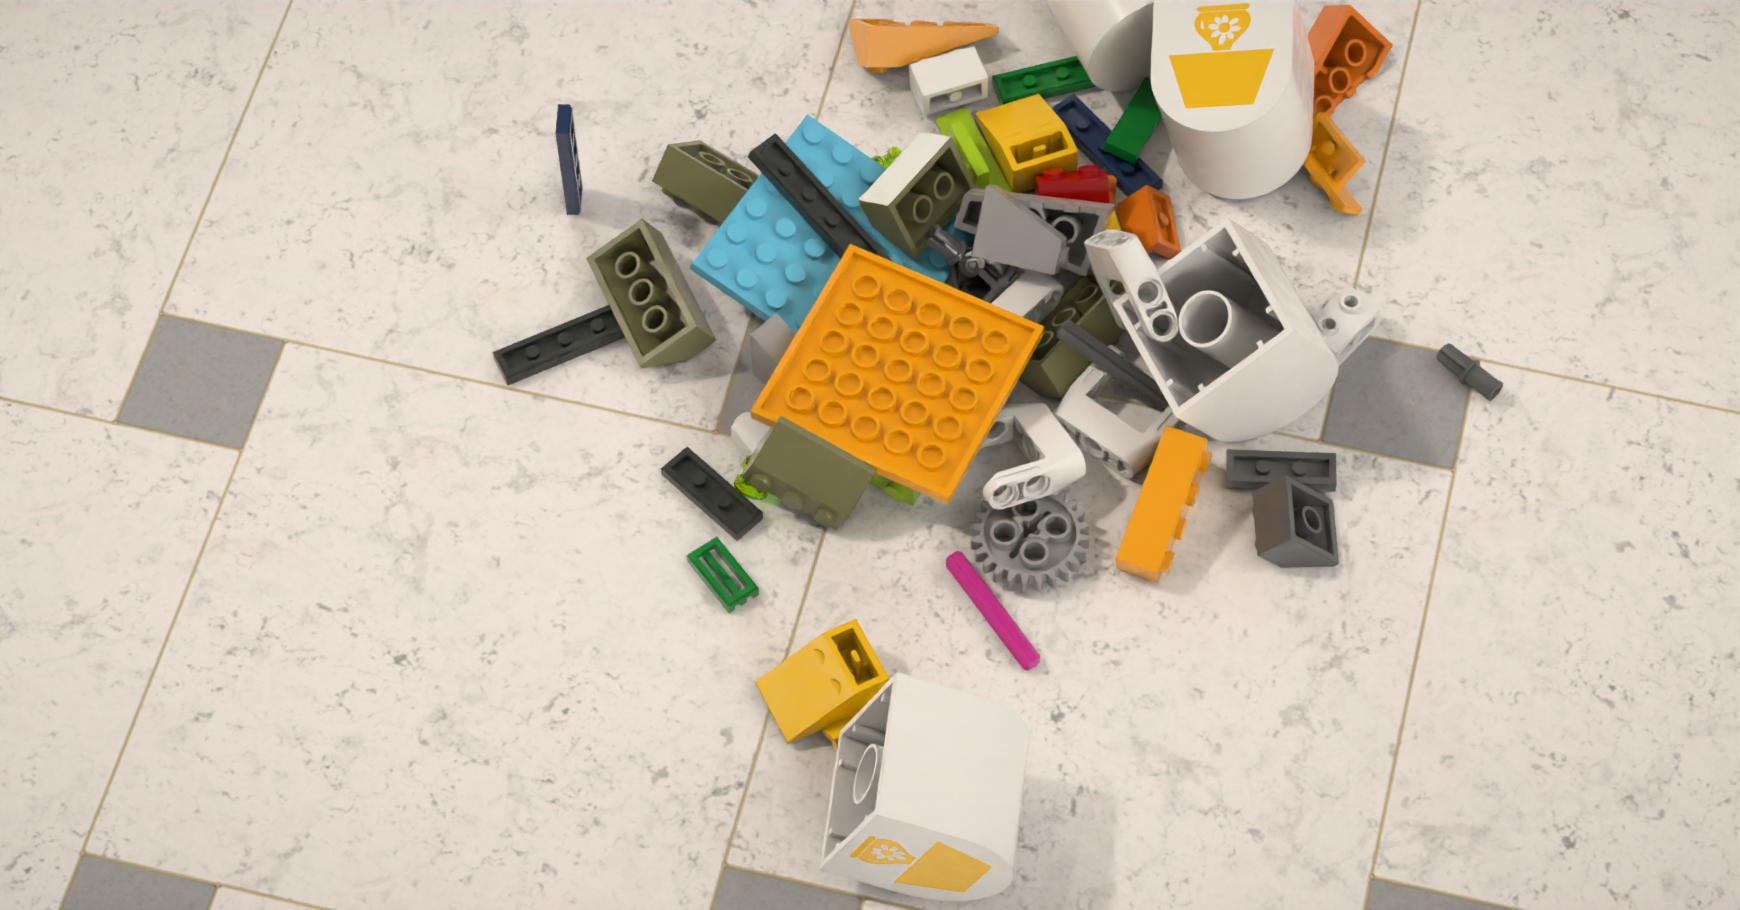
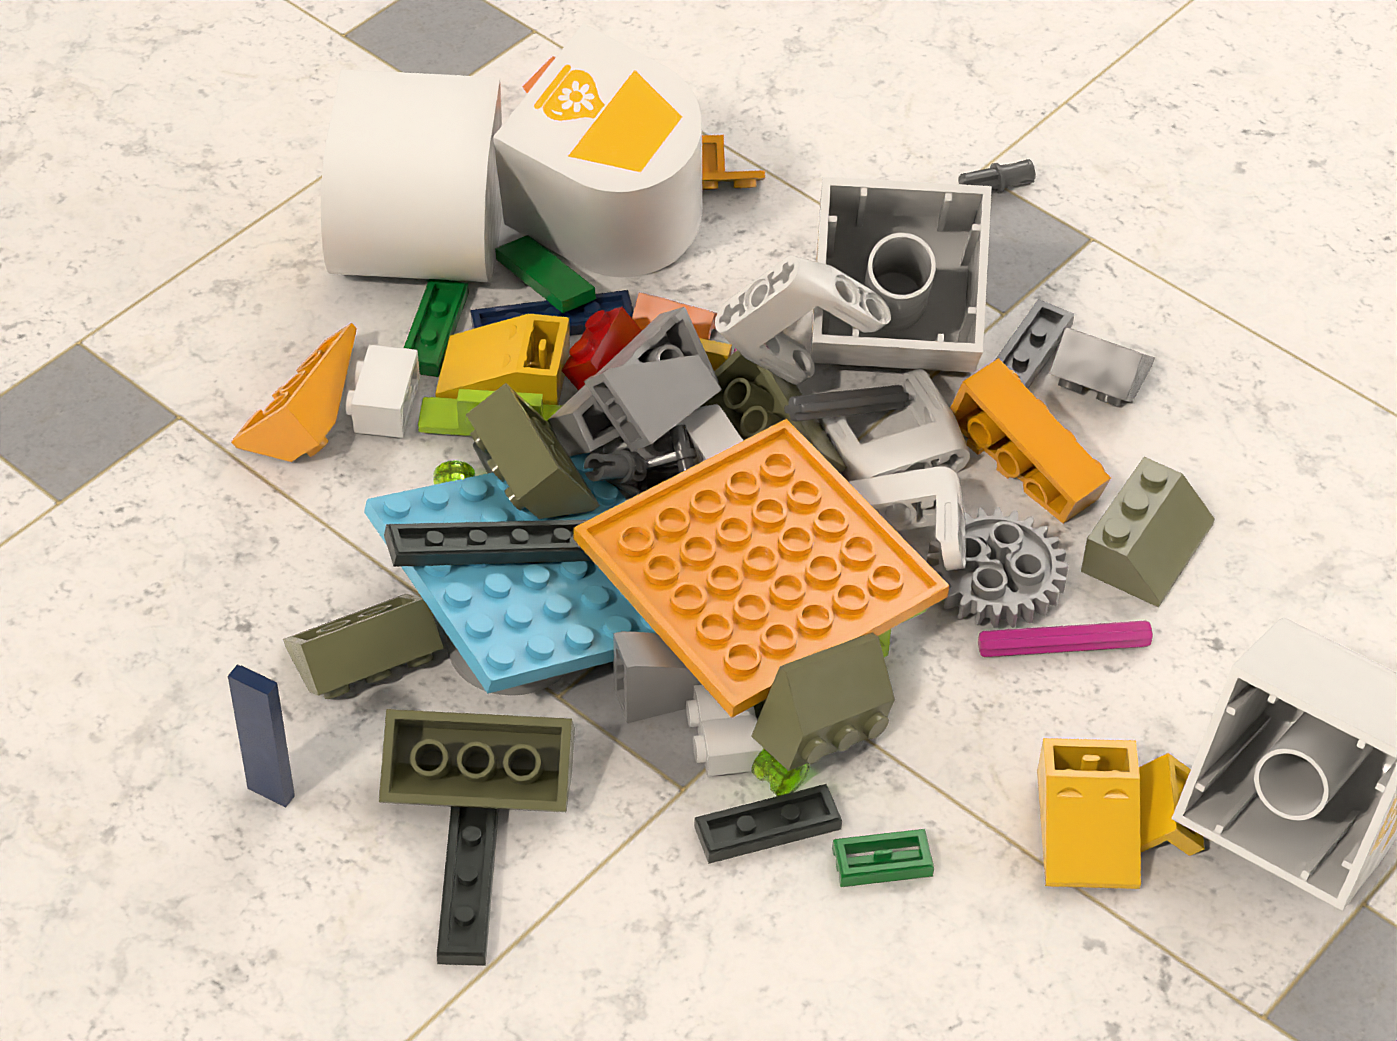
camera: 65 degrees left, 10 degrees down
(1129, 624) = (1147, 533): none -> olive slope

